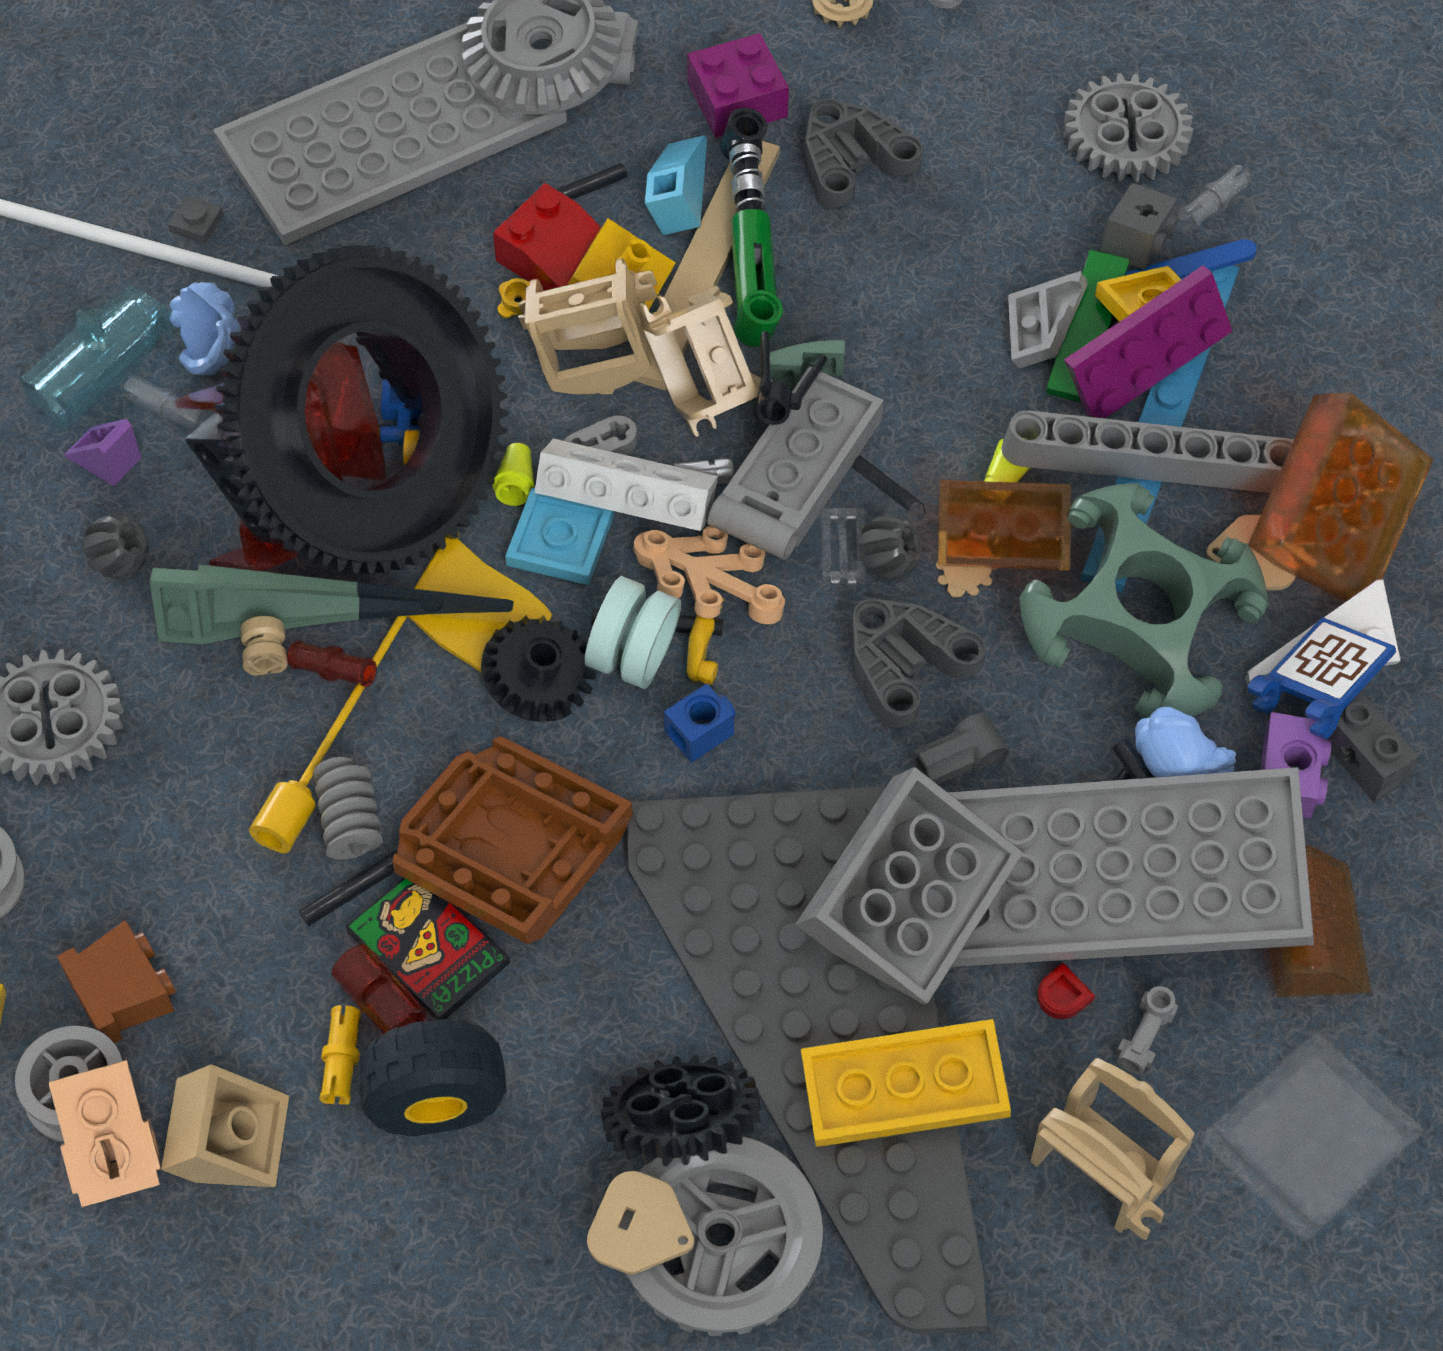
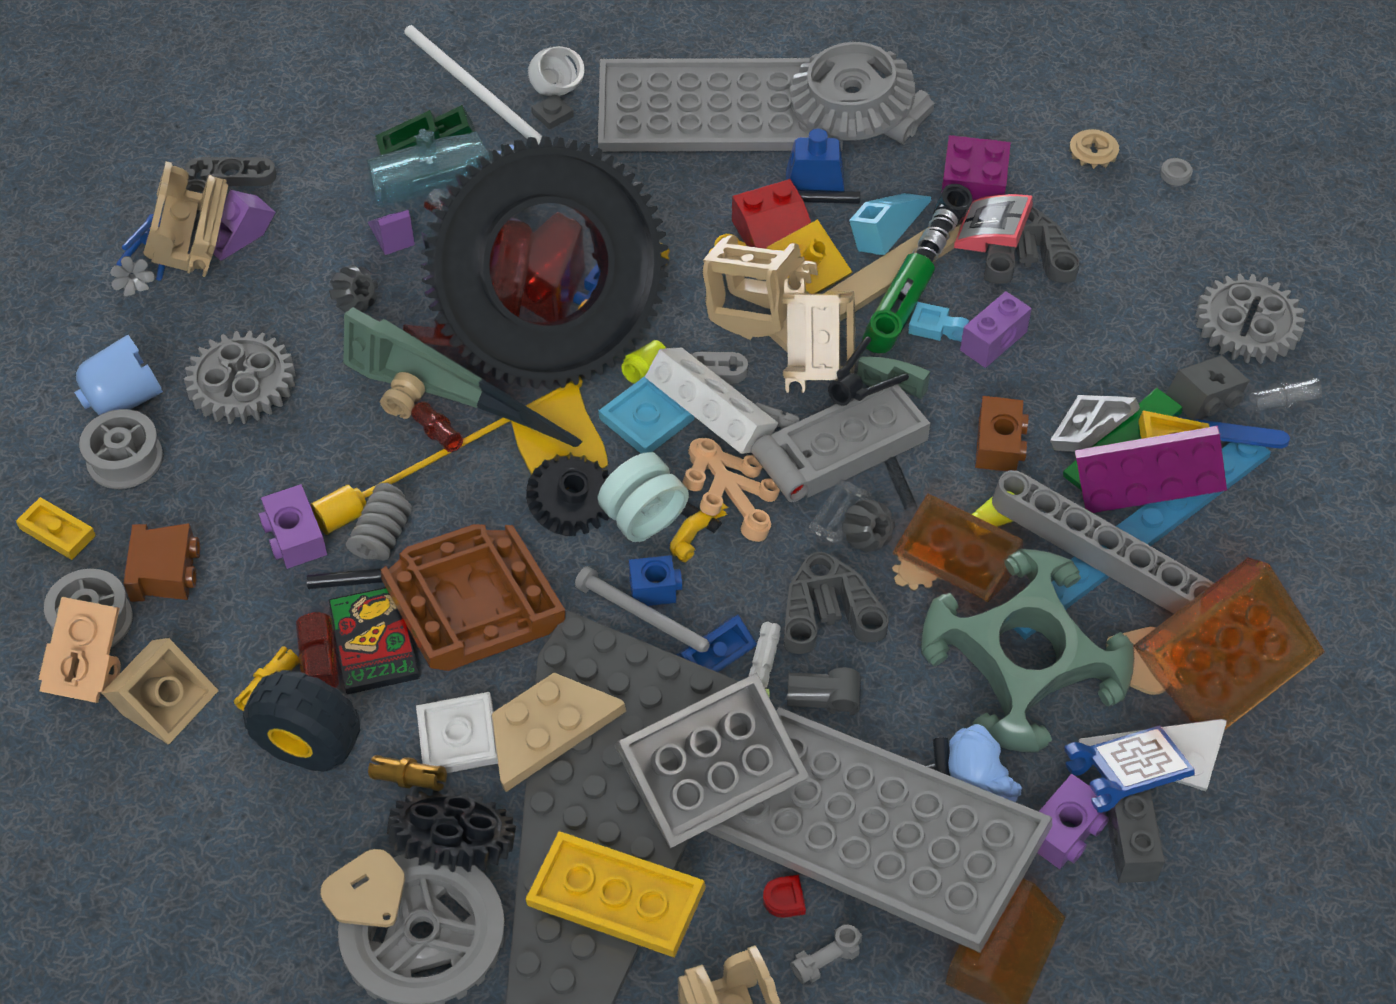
camera: 30 degrees right, 5 degrees down
(56, 313) = (402, 136): none -> dark green slope
(167, 162) = (553, 67): none -> white helmet
(235, 842) = (293, 526): none -> medium lavender brick
(556, 152) = (816, 163): none -> blue torso
(579, 1074) = (407, 772): none -> pearl gold pin
(601, 1002) = (458, 732): none -> white plate
(626, 757) = (588, 580): none -> light grey bar
(699, 939) = (547, 724): none -> tan wing
(801, 134) = (994, 221): none -> slope
(802, 282) = (933, 321): none -> medium azure plate
(814, 757) = (726, 643): none -> blue slope
(869, 745) = (765, 651): none -> white axle
(877, 259) = (995, 329): none -> medium lavender brick
(957, 377) = (1000, 434): none -> dark orange brick

